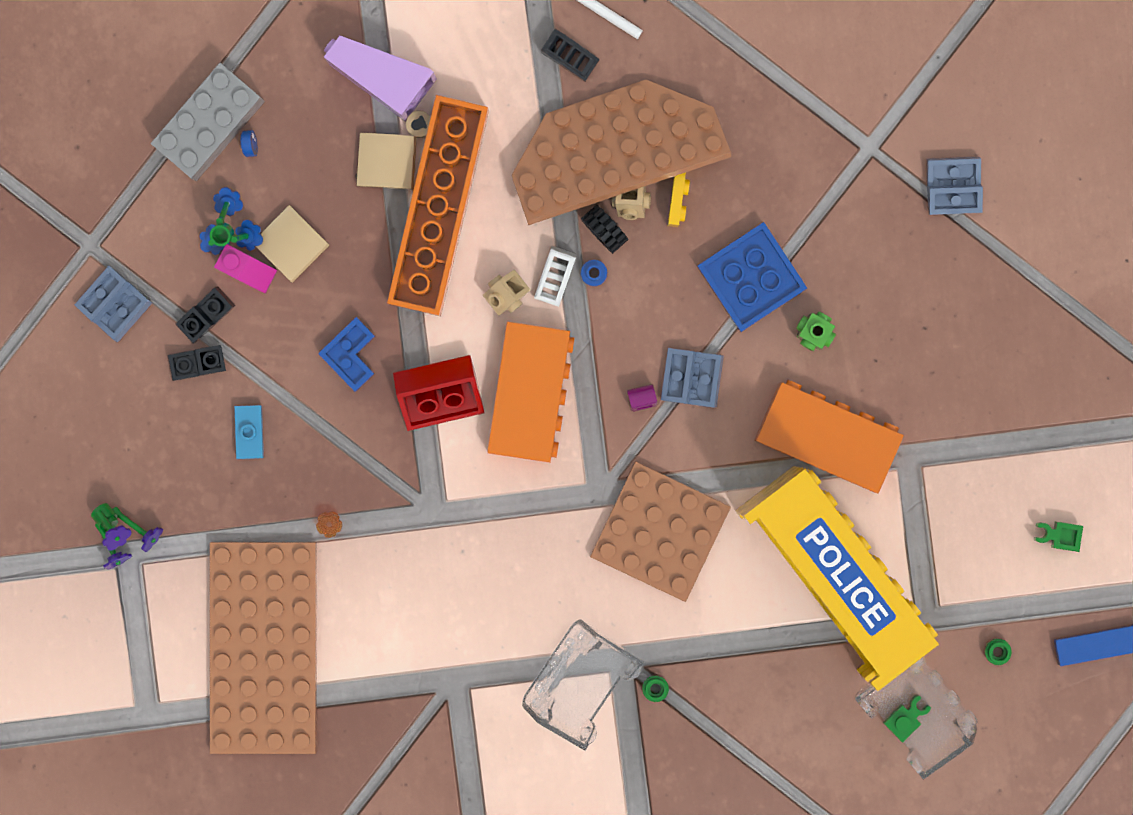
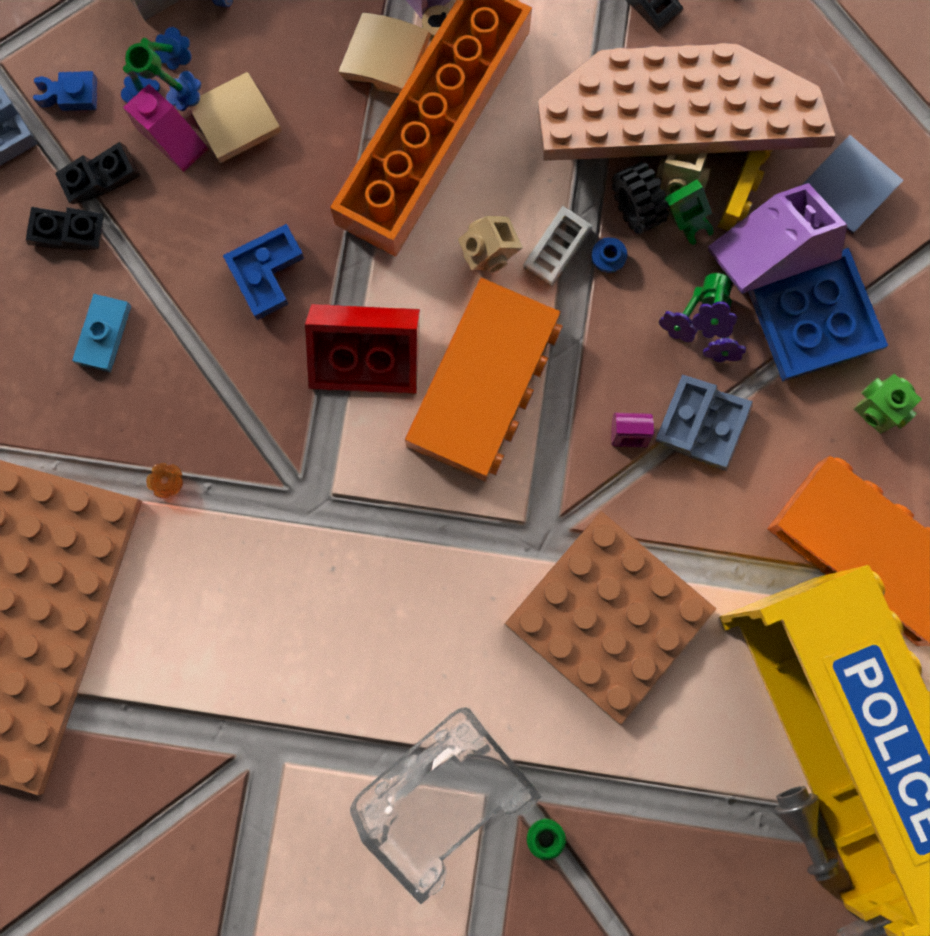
camera: 15 degrees right, 10 degrees down
(164, 255) = (71, 91): none -> blue plate
(642, 228) = (689, 210): none -> green plate
(676, 284) = (713, 319): none -> dark purple plant
(710, 235) = (781, 239): none -> medium lavender slope
(756, 168) = (853, 182): none -> sand blue slope
(817, 626) = (801, 814): none -> flat silver piece

